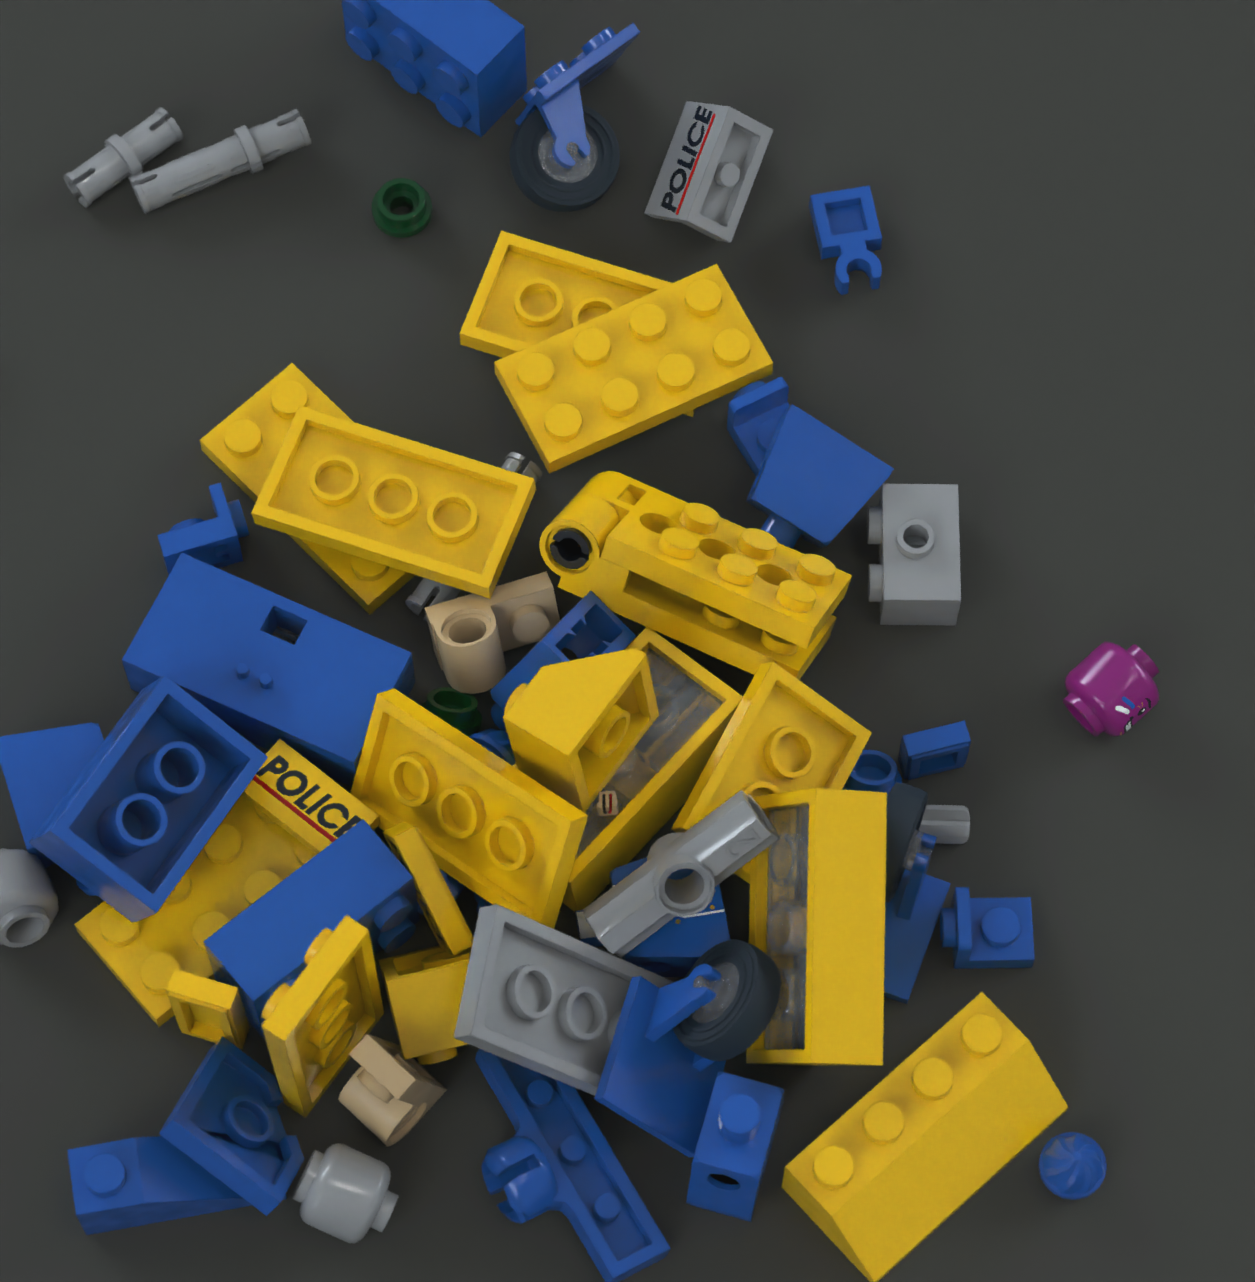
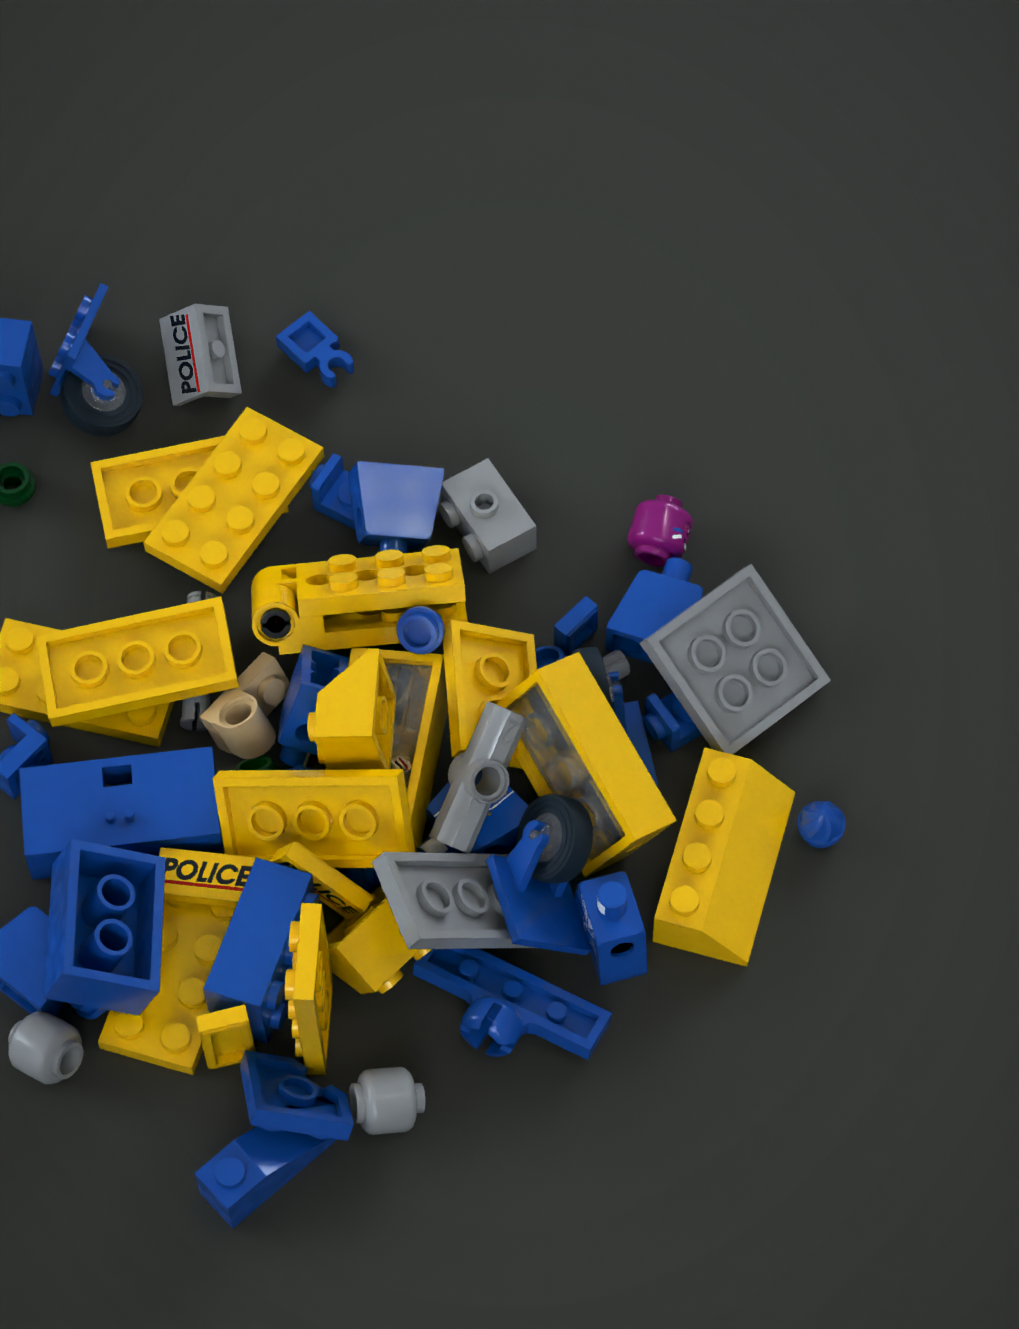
camera: 30 degrees left, 5 degrees down
(387, 1090) = (373, 1020): tan plate -> none
(731, 653) = (420, 630): none -> blue plate
(1041, 796) = (649, 605): none -> blue torso
(1091, 907) = (735, 661): none -> light grey plate

